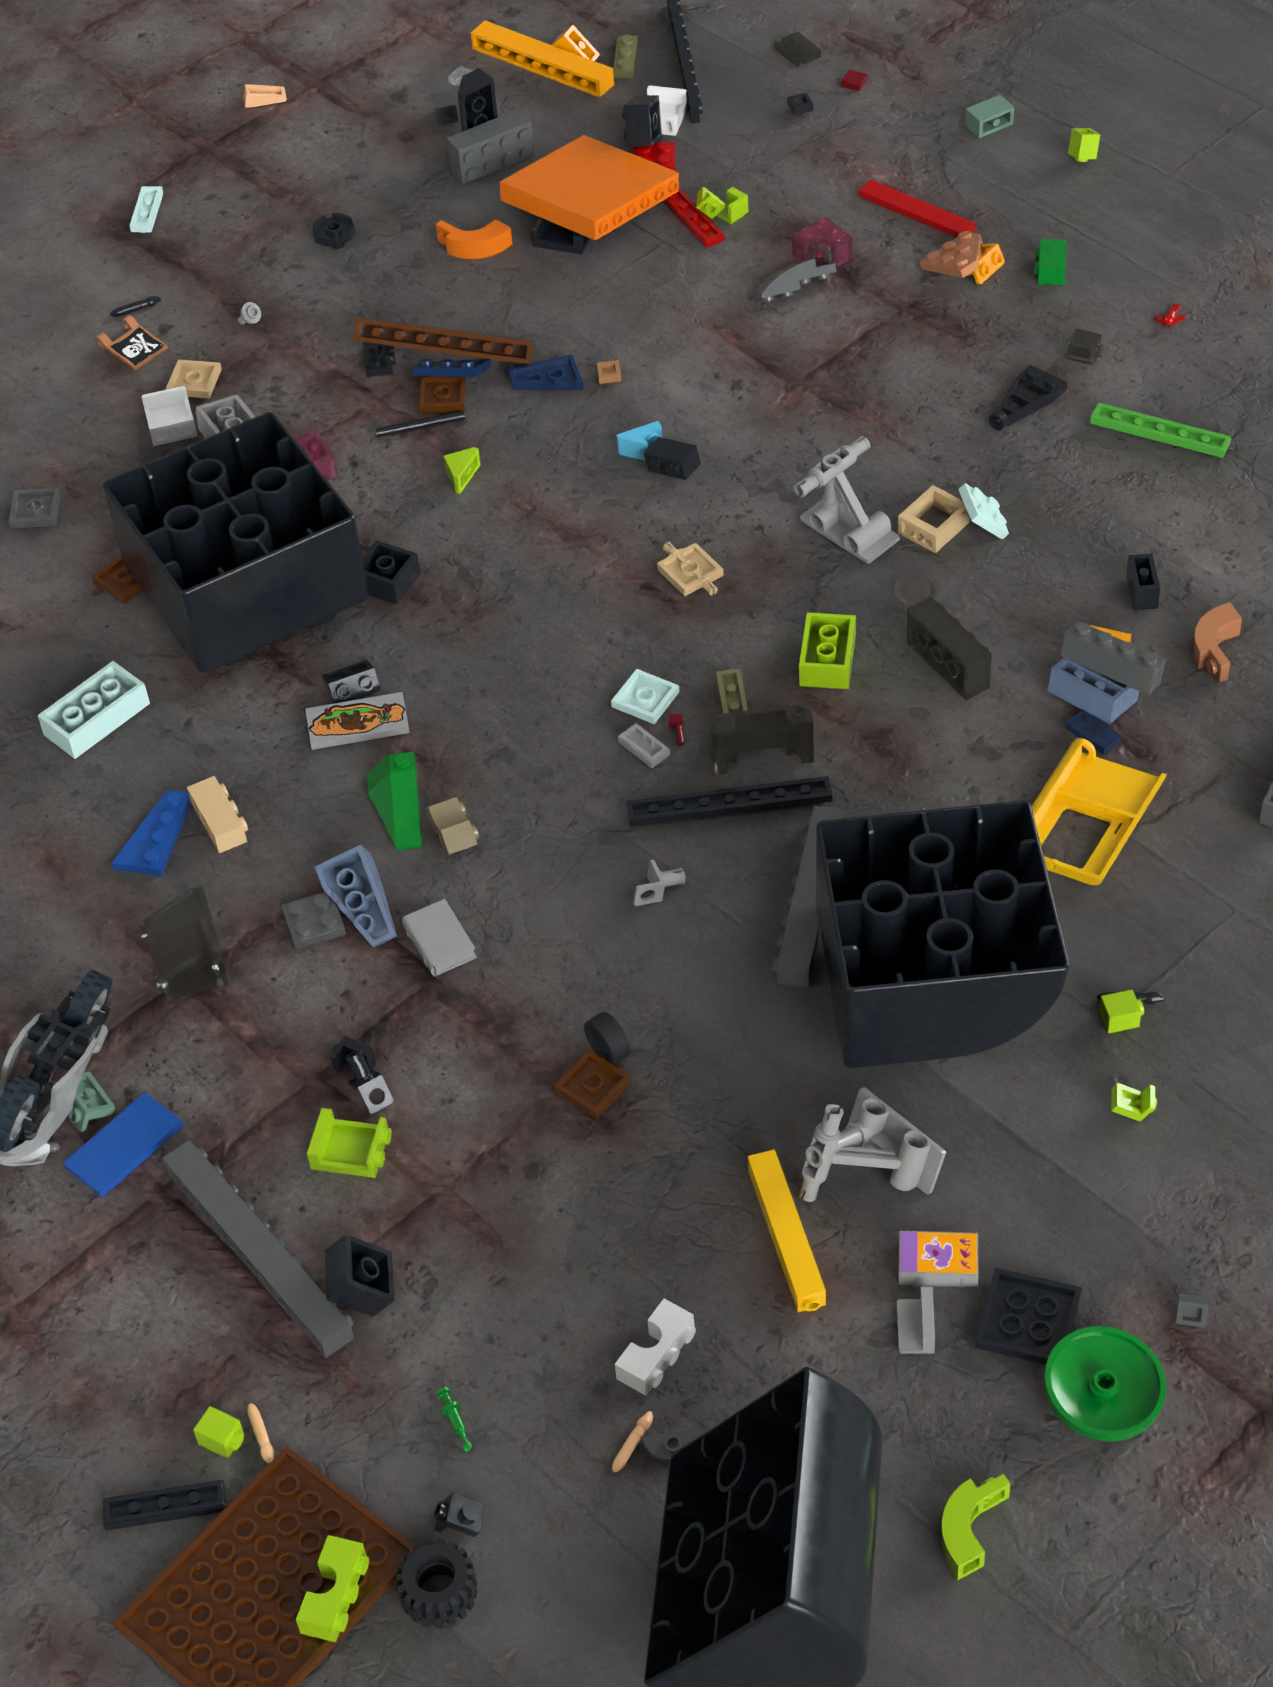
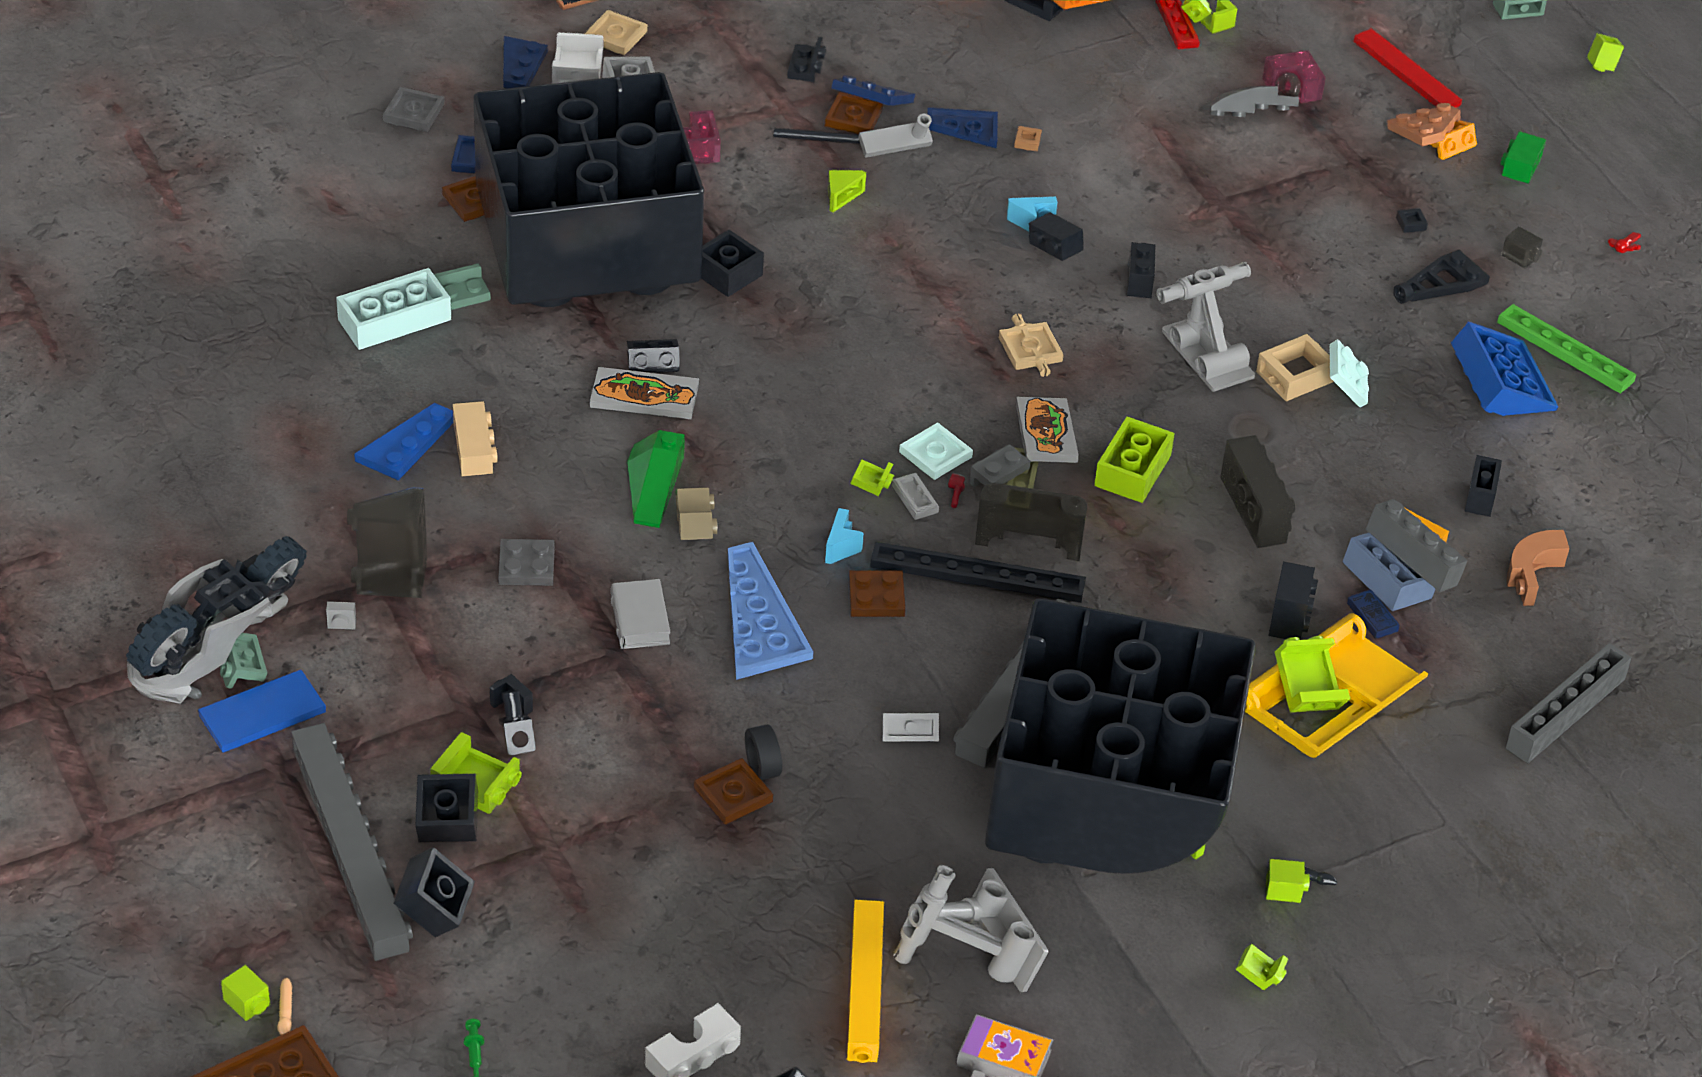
camera: 10 degrees right, 5 degrees down
(101, 537) = (464, 155): none -> dark blue tile
(116, 433) = (521, 61): none -> dark blue wing
(150, 666) = (464, 286): none -> sand green bracket
(162, 1027) = (341, 615): none -> light grey plate
(164, 1505) = (168, 1042): black tile -> none
(337, 1187) = (446, 807): none -> black brick
(358, 891) = (579, 549): sand blue wedge -> none
(443, 340) = (873, 62): reddish brown brick -> none
(491, 405) = (897, 137): none -> light grey piece
(554, 912) = (762, 622): none -> medium blue wing
(596, 809) = (842, 539): none -> medium azure slope
(599, 739) = (872, 478): none -> lime bracket
(645, 844) = (876, 593): none -> reddish brown plate
(658, 882) = (875, 625): light grey bracket -> none
(709, 695) = (999, 467): none -> dark grey bracket
(728, 970) = (910, 726): none -> light grey plate
(737, 645) = (1046, 429): none -> tile
(760, 467) = (1141, 270): none -> black brick
(978, 350) = (1411, 220): none -> black plate
(1022, 743) = (1293, 601): none -> black brick
(1065, 809) = (1309, 675): none -> lime panel
(1114, 469) = (1502, 372): none -> blue slope

